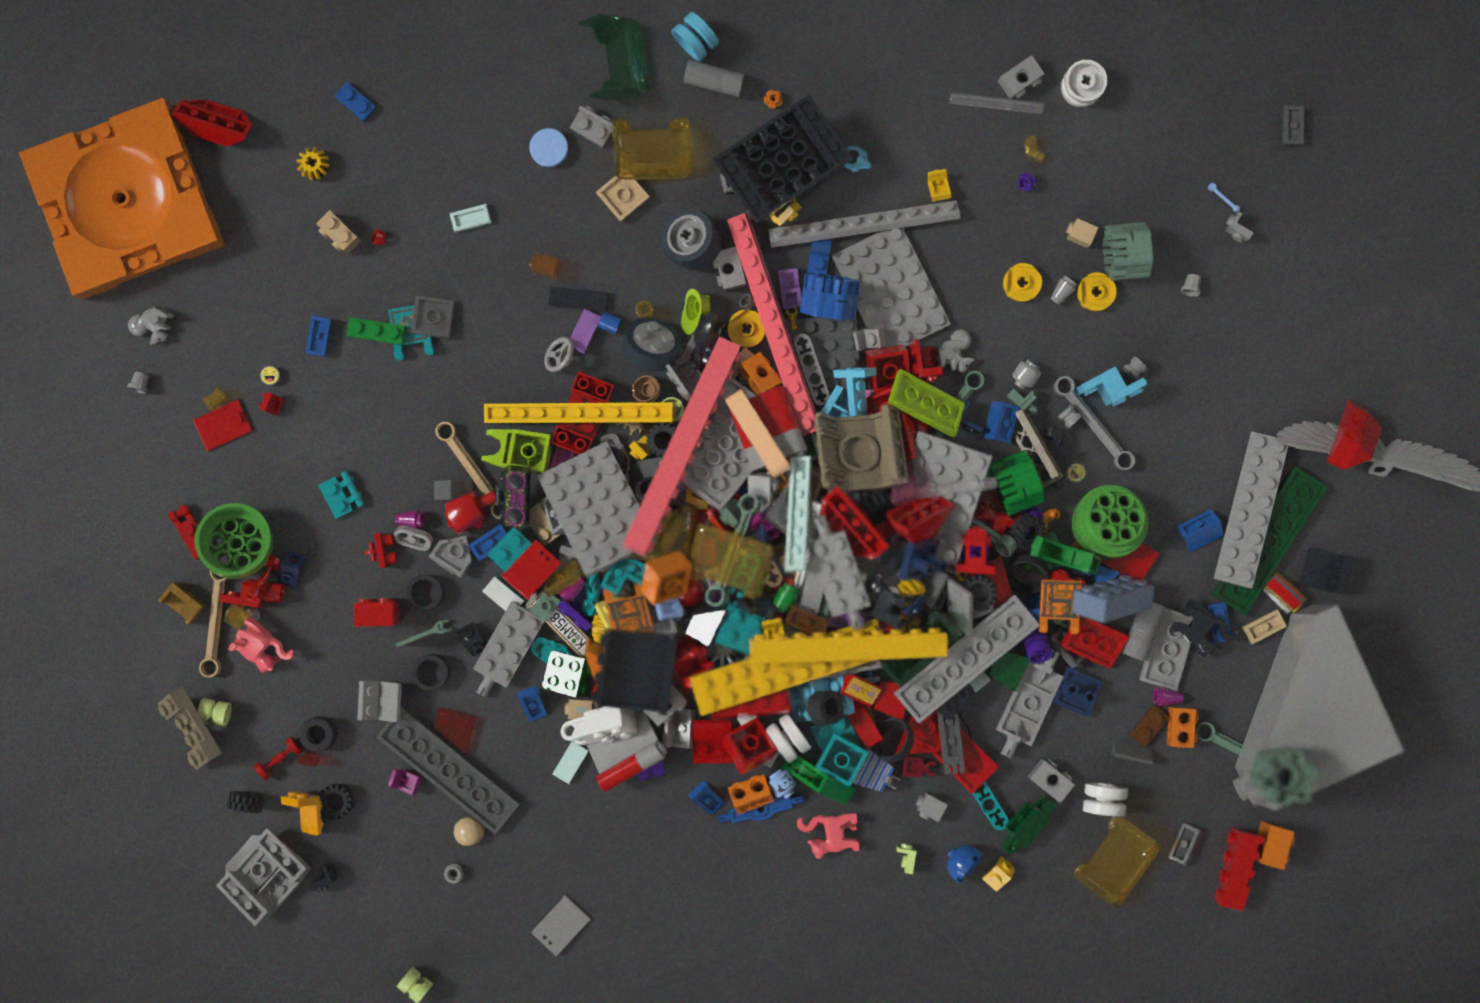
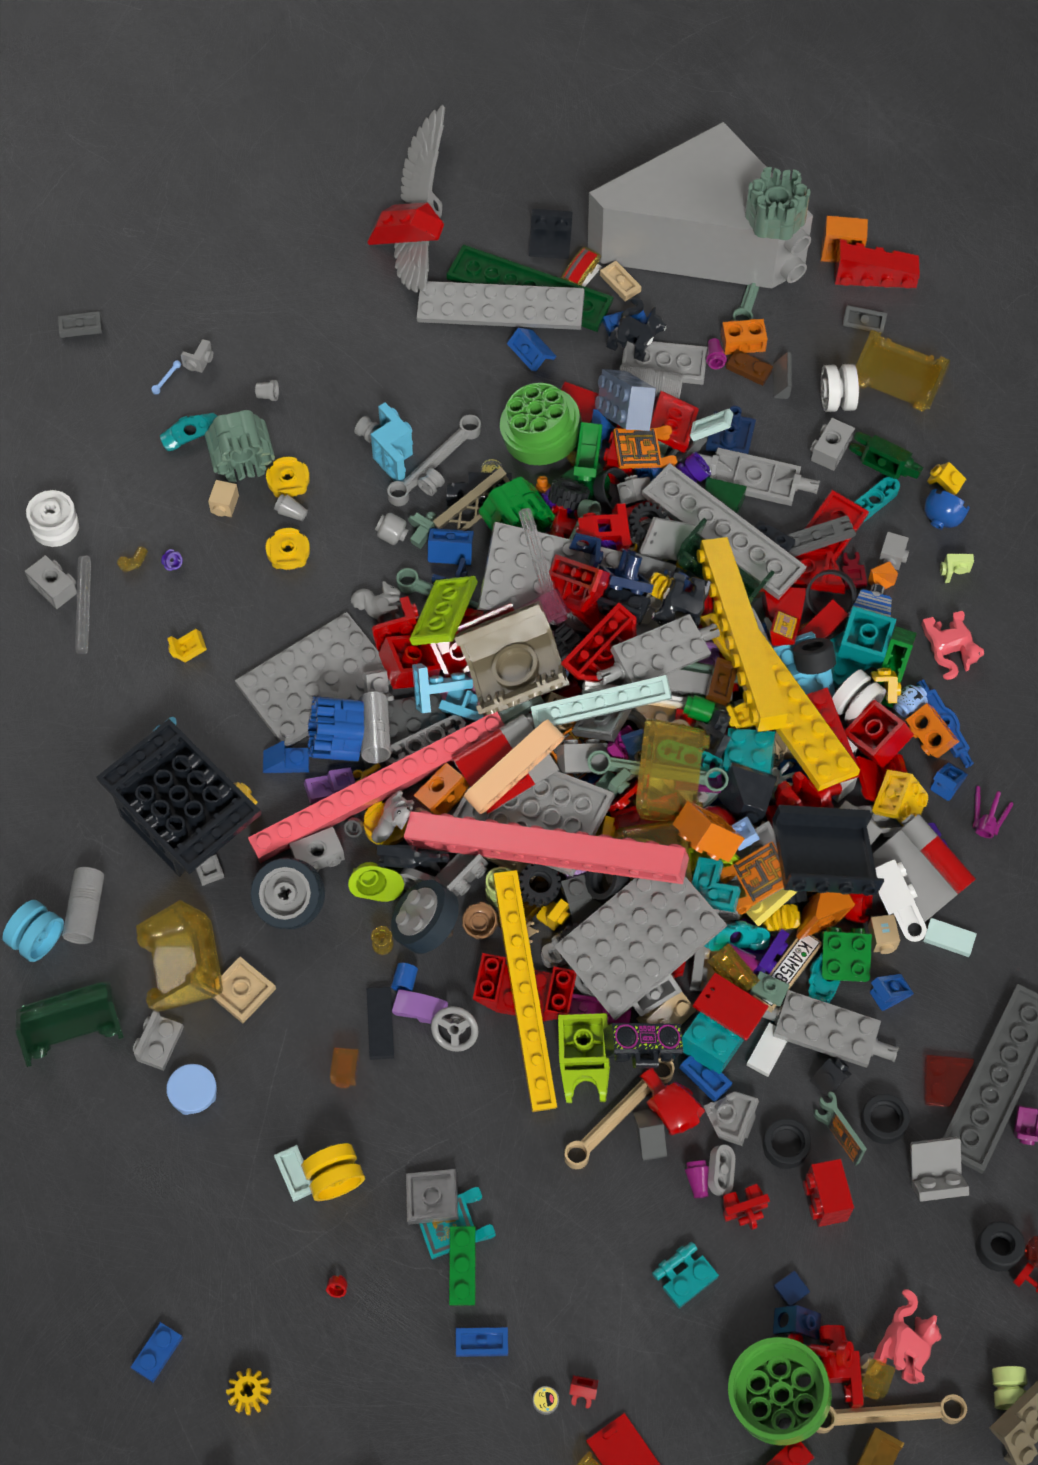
camera: 100 degrees left, 25 degrees down
(316, 571) = (791, 1289): none -> dark blue tile
(334, 228) = (338, 1338): tan brick -> none
(458, 244) = (332, 1172): none -> yellow wheel
(660, 819) = (987, 825): none -> magenta plant
(688, 750) = (900, 796): none -> yellow bracket
(743, 333) = (395, 813): none -> light grey animal
(768, 99) = (102, 843): orange plate -> none
(798, 765) = (892, 686): none -> yellow bracket
(829, 329) = (376, 737): none -> light grey piece
(864, 224) = (243, 719): light grey plate -> none
(907, 791) = (884, 575): none -> orange slope
(947, 539) = (593, 548): none -> dark blue bracket
(1025, 590) = (632, 488): none -> light grey brick
(1080, 673) = (711, 424): none -> light aqua tile
(1155, 198) = (175, 435): none -> teal piece

